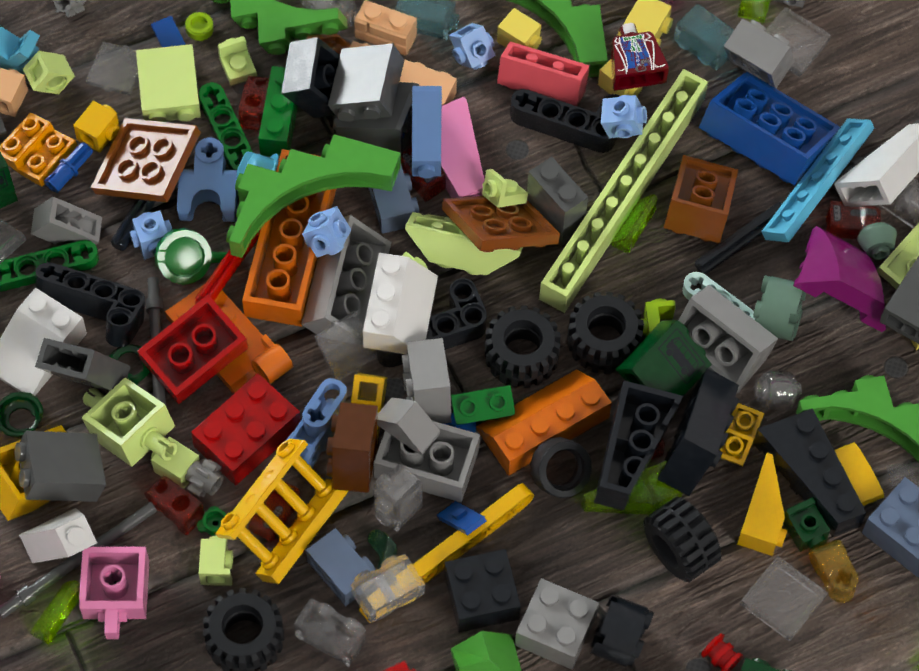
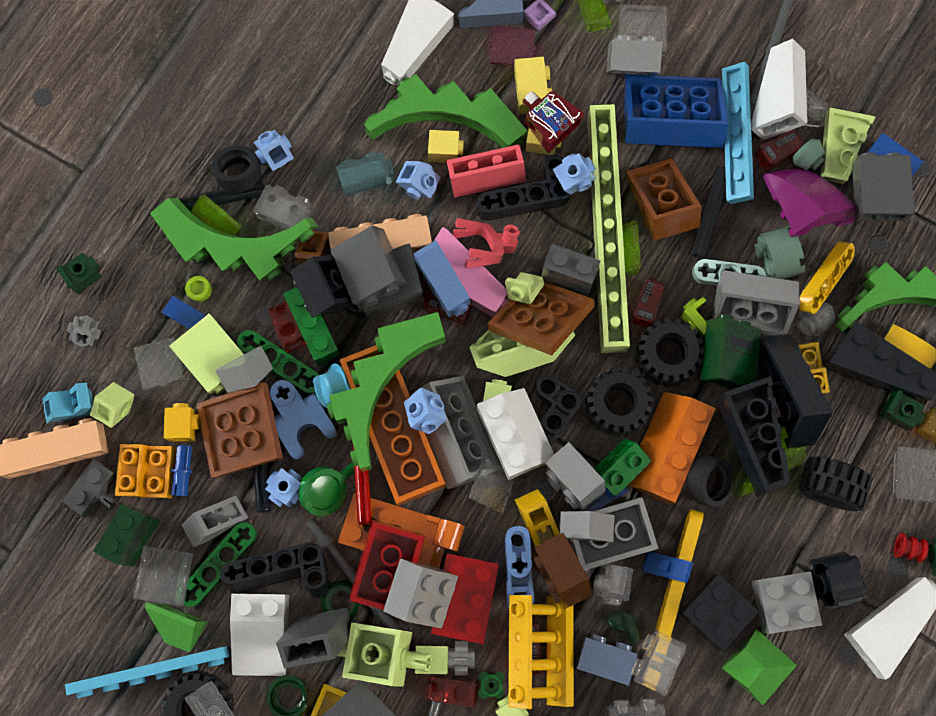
camera: 30 degrees left, 15 degrees up
(189, 109) = (245, 370): none -> light grey slope
(206, 382) = (420, 594): none -> light grey brick
(236, 60) = (248, 301): yellowish green bracket -> none
(385, 26) = (342, 204): light nougat brick -> none
(394, 207) = (454, 348): sand blue brick -> none
(514, 147) = (499, 242): none -> coral piece
(619, 278) = (647, 303): none -> clear red leg
(703, 36) = (582, 65): clear light blue brick -> none
(765, 515) = (869, 421): yellow slope -> none
(812, 359) = (826, 277): none -> yellow beam

